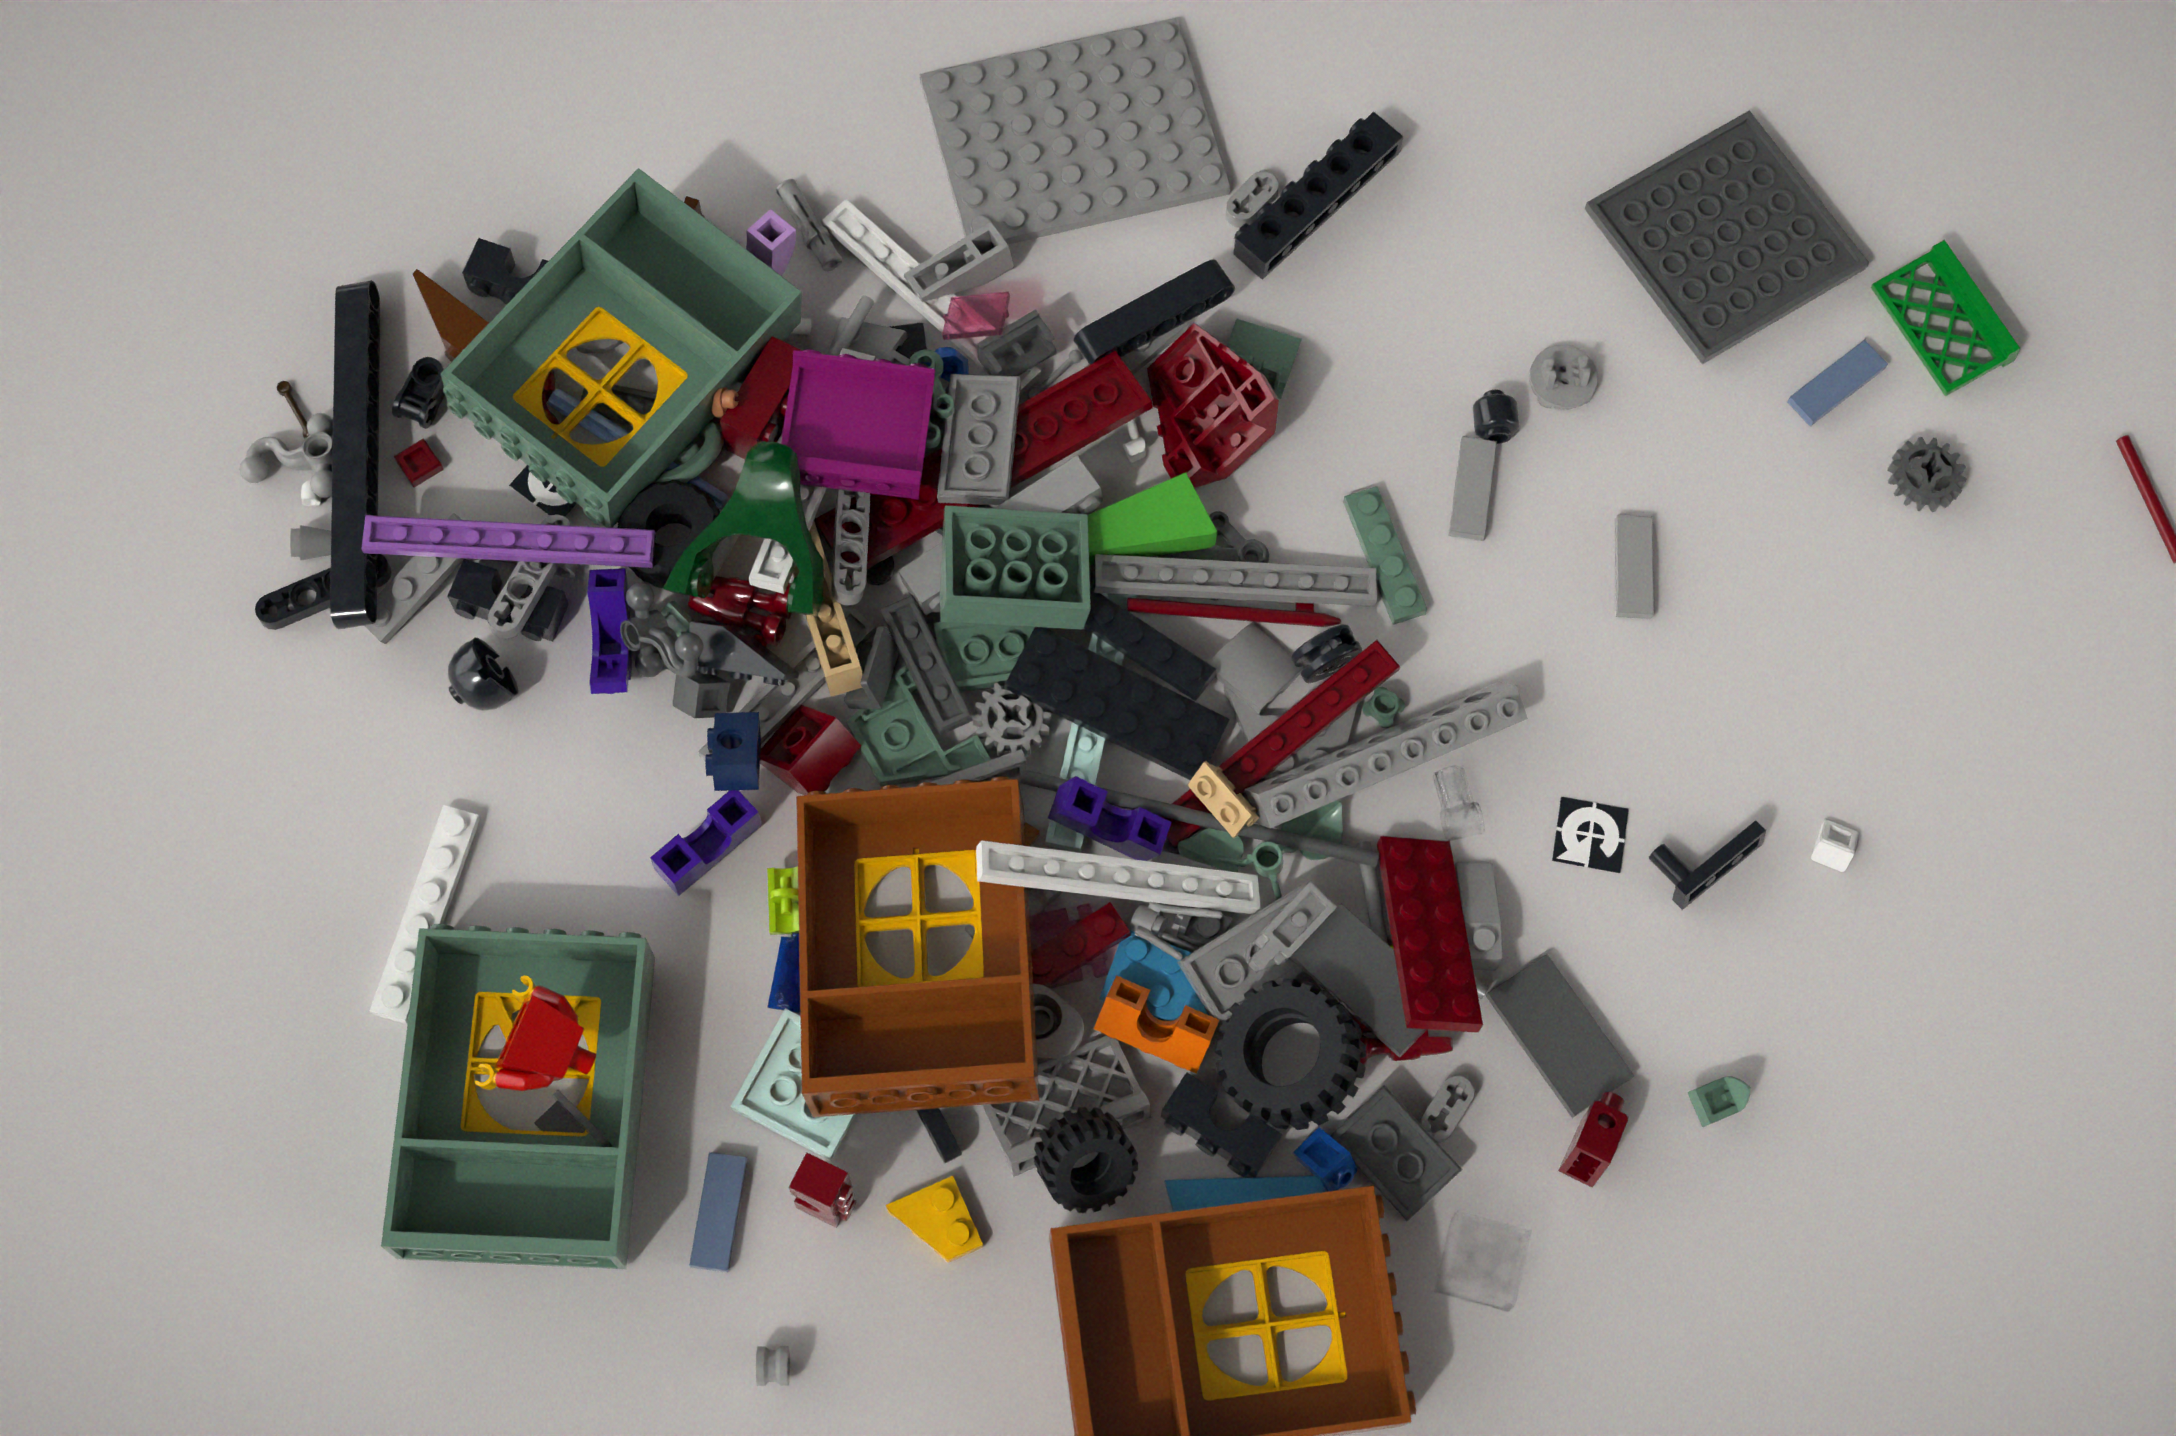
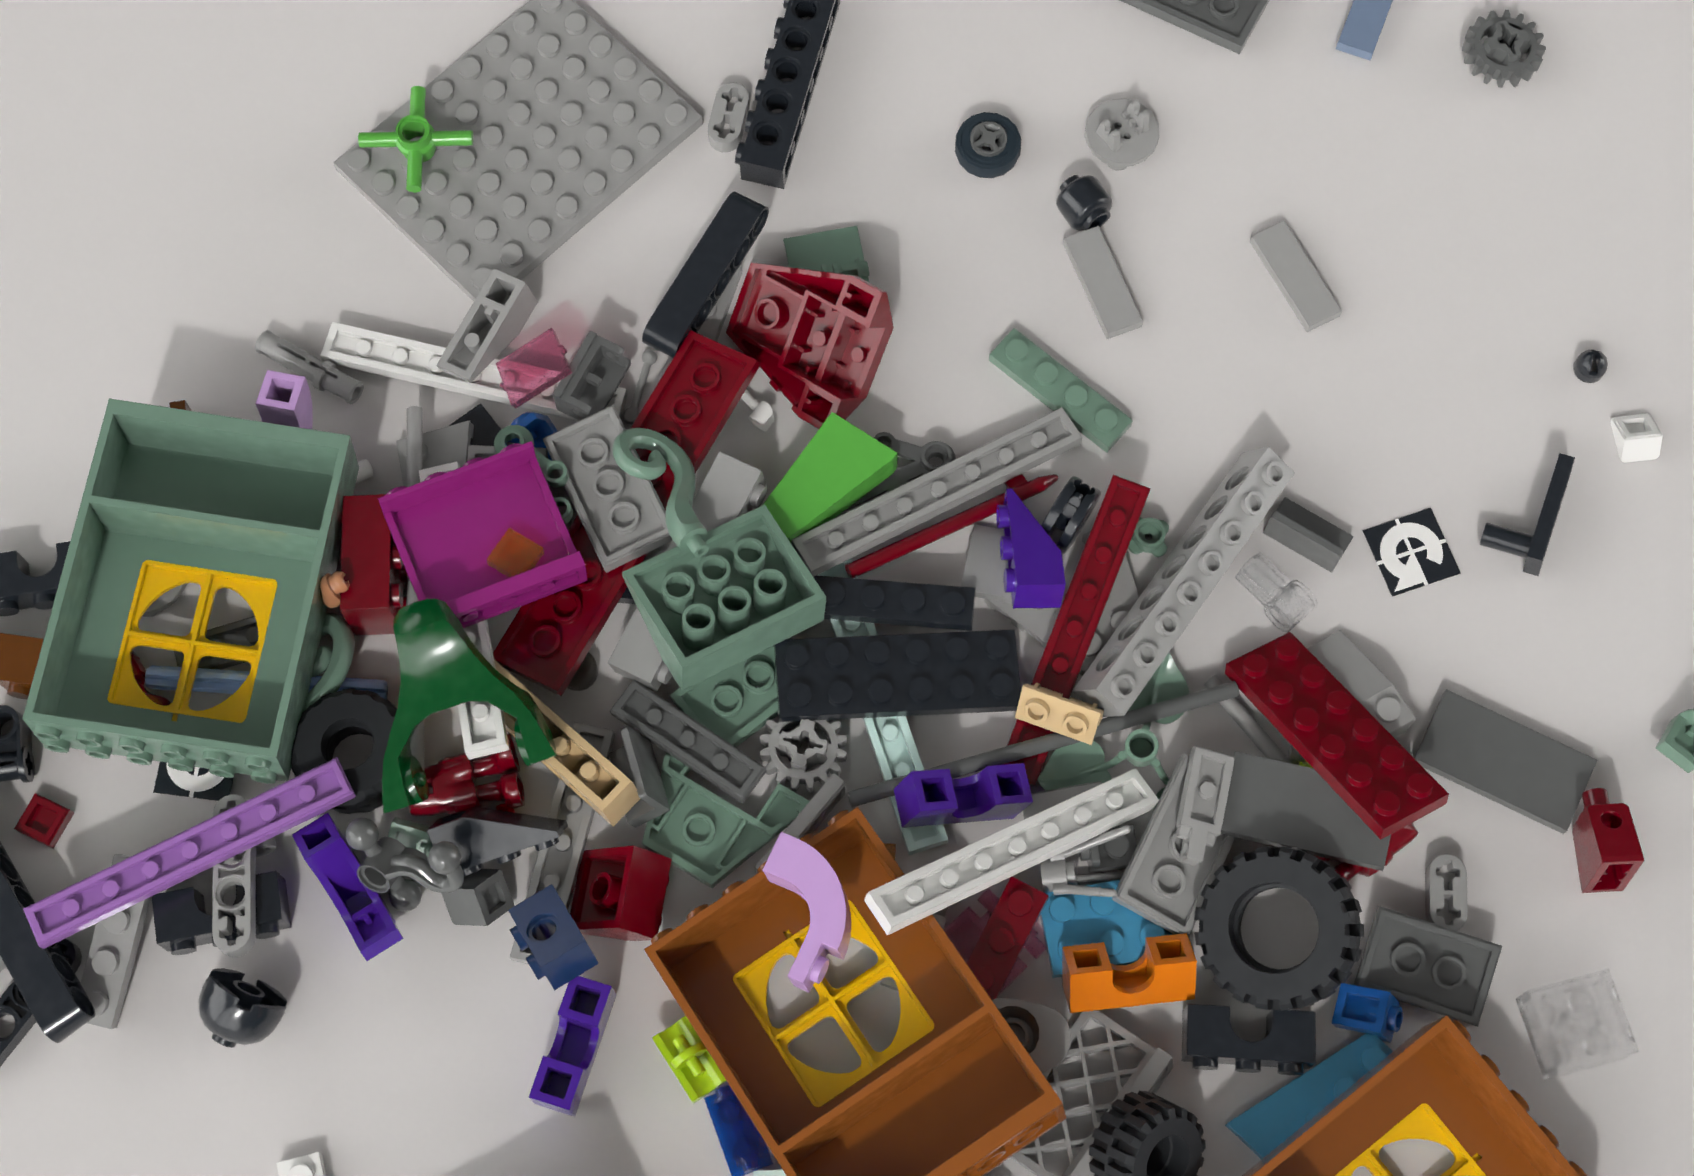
camera: 25 degrees left, 0 degrees up
(850, 542) = (549, 658): light grey beam -> none
(873, 448) = (514, 554): none -> clear orange tile
(949, 834) = (809, 875): none -> lavender arch
(991, 99) = (415, 151): none -> bright green bar
(1013, 491) = (679, 516): none -> sand green plant
(1276, 669) = (1034, 561): none -> dark purple slope
(1453, 319) = (989, 131): none -> black wheel
(1513, 774) = (1308, 534): none -> dark grey panel
(1827, 763) = (1583, 365): none -> black hinge

